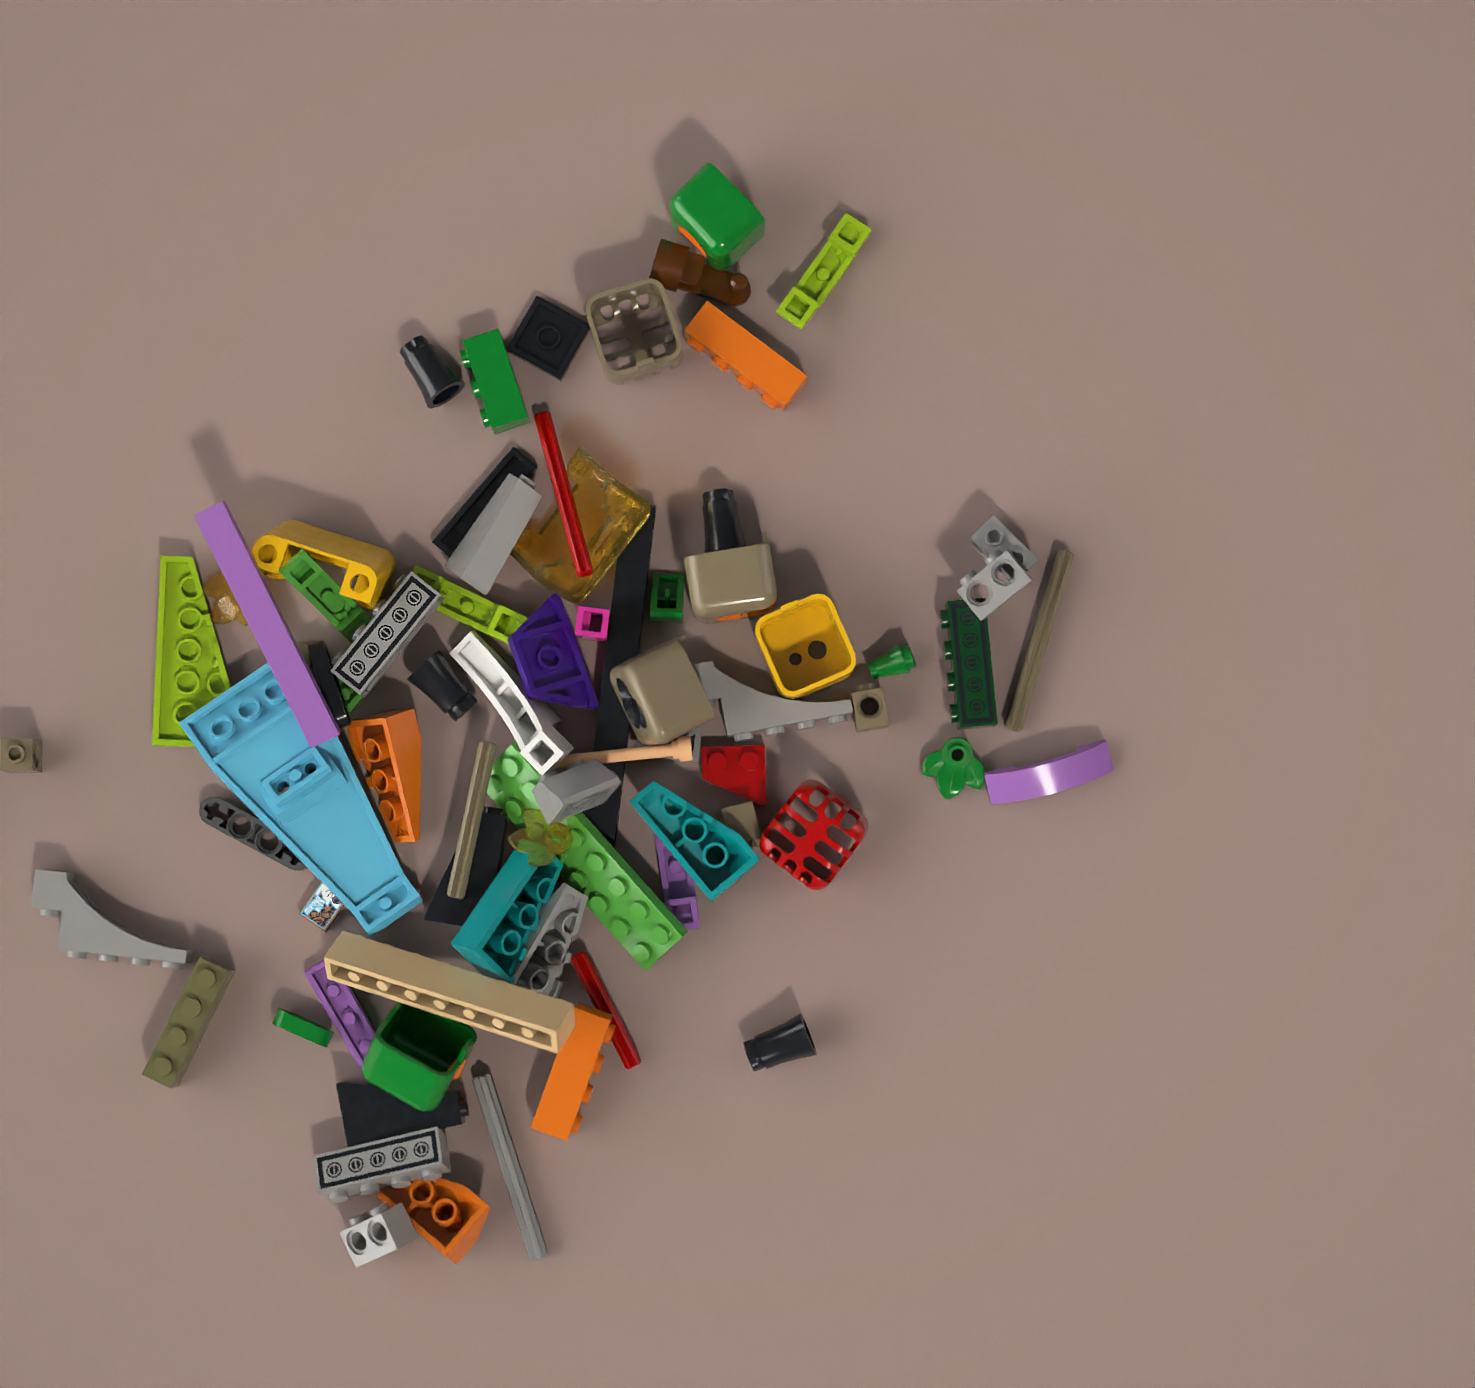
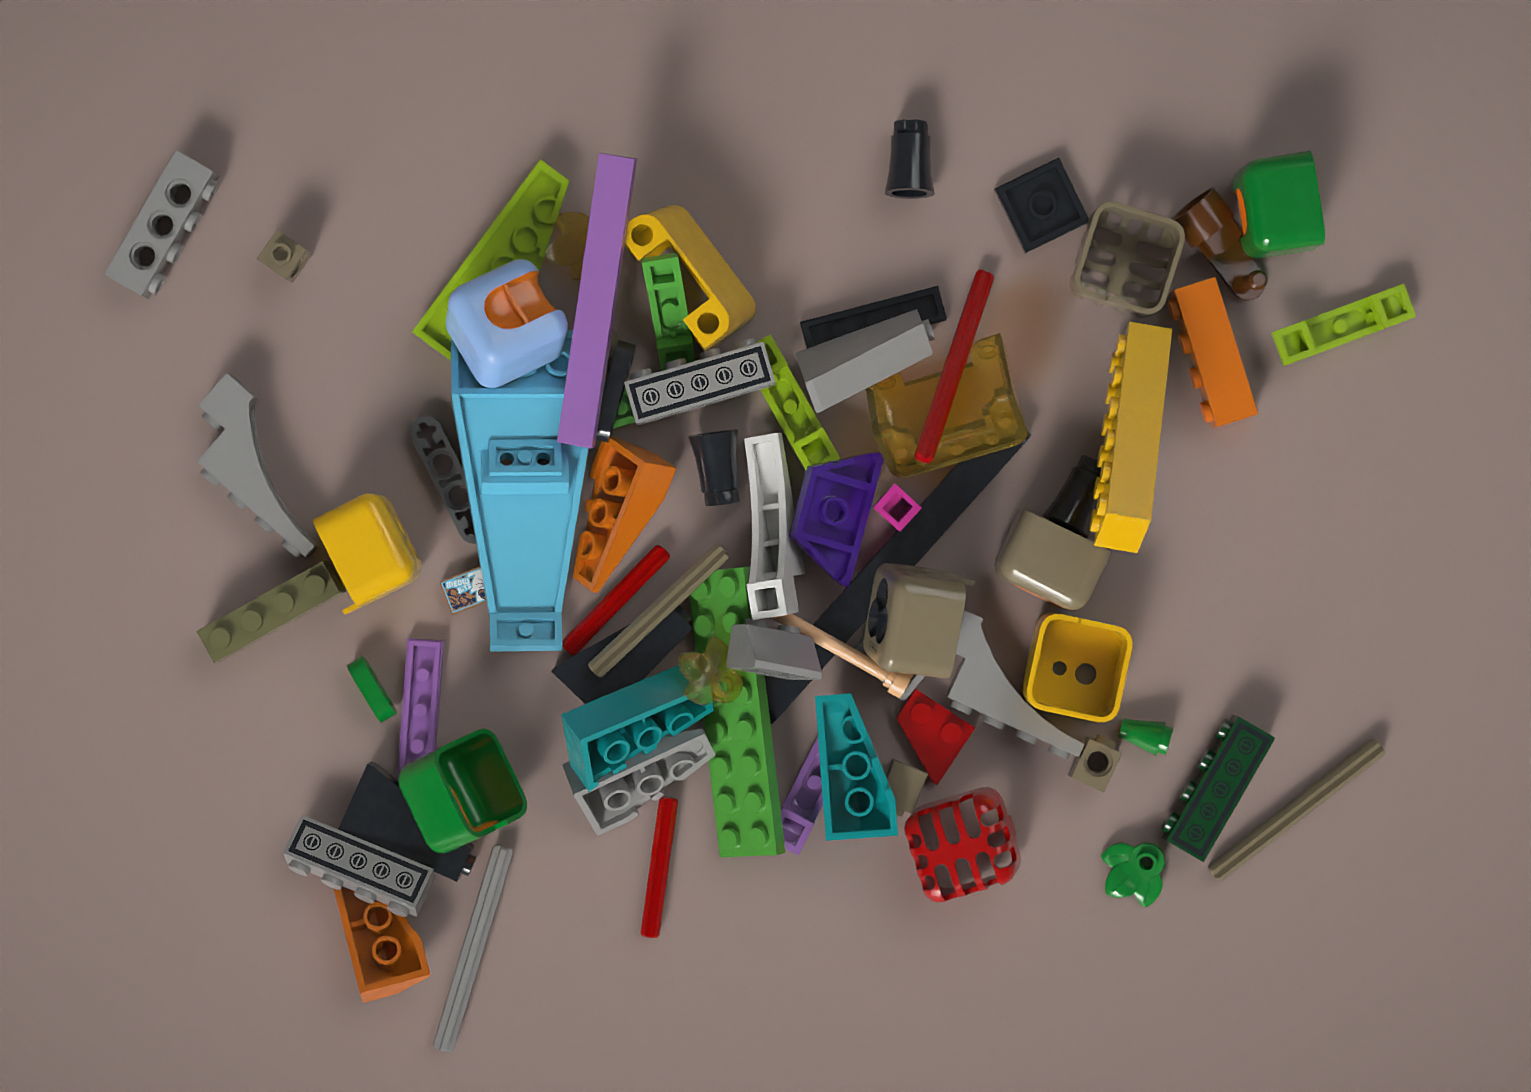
camera: 30 degrees right, 5 degrees up
(213, 688) = (505, 324): none -> light blue piece
(227, 923) = (368, 548): none -> yellow piece
(379, 1234) = (312, 927): light grey brick -> none
(437, 836) = (615, 600): none -> red axle
(450, 991) = (530, 757): tan brick -> none
(494, 382) = (963, 212): green brick -> none
(572, 1072) = (590, 904): orange brick -> none
(667, 598) = (982, 528): green slope -> none
(724, 453) = (1131, 437): none -> yellow brick
(780, 1044) = (796, 1012): black plant -> none
(996, 536) = (1323, 704): light grey brick -> none
(998, 590) = (1294, 744): light grey brick -> none
(1049, 775) = (1215, 941): medium lavender slope -> none

